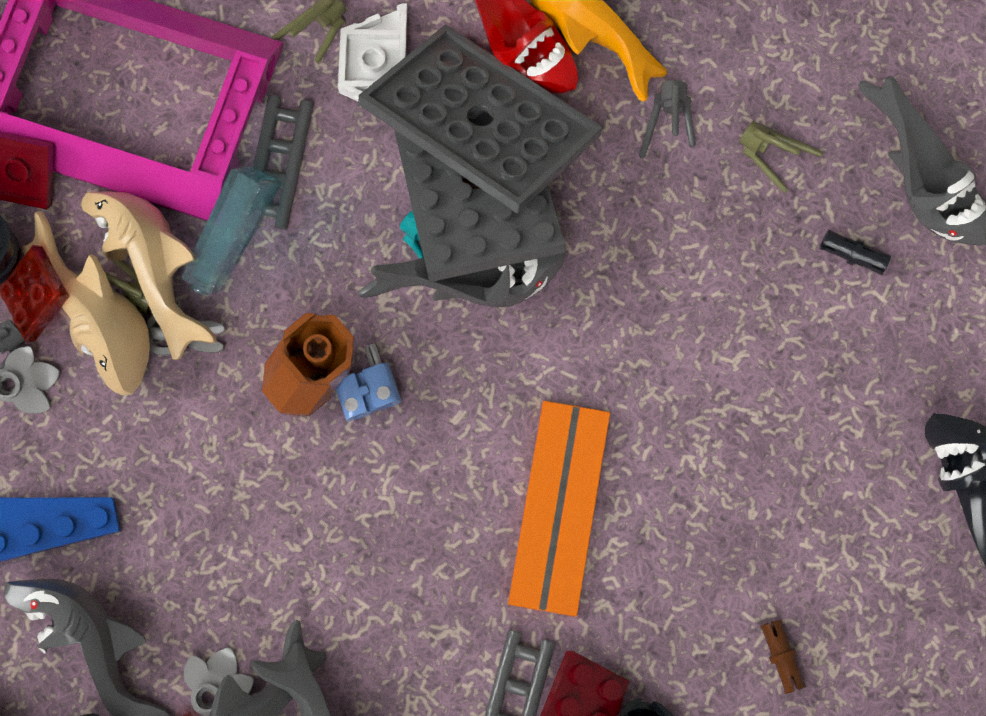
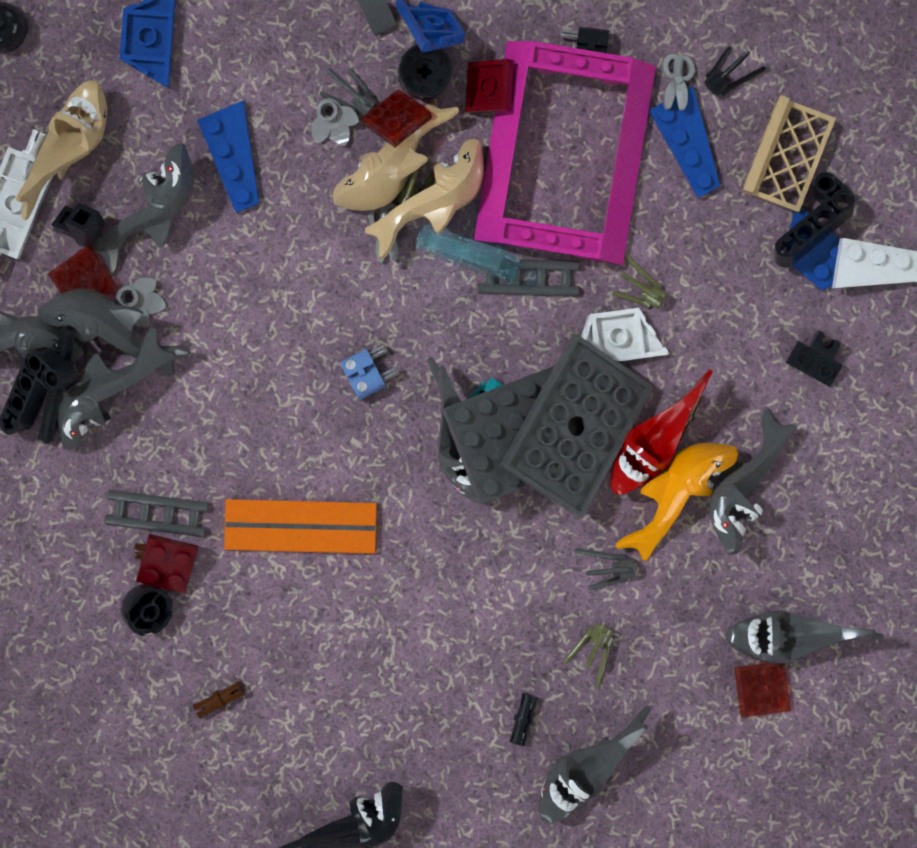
camera: 80 degrees right, 10 degrees up
(308, 364) = (372, 329): dark orange brick -> none

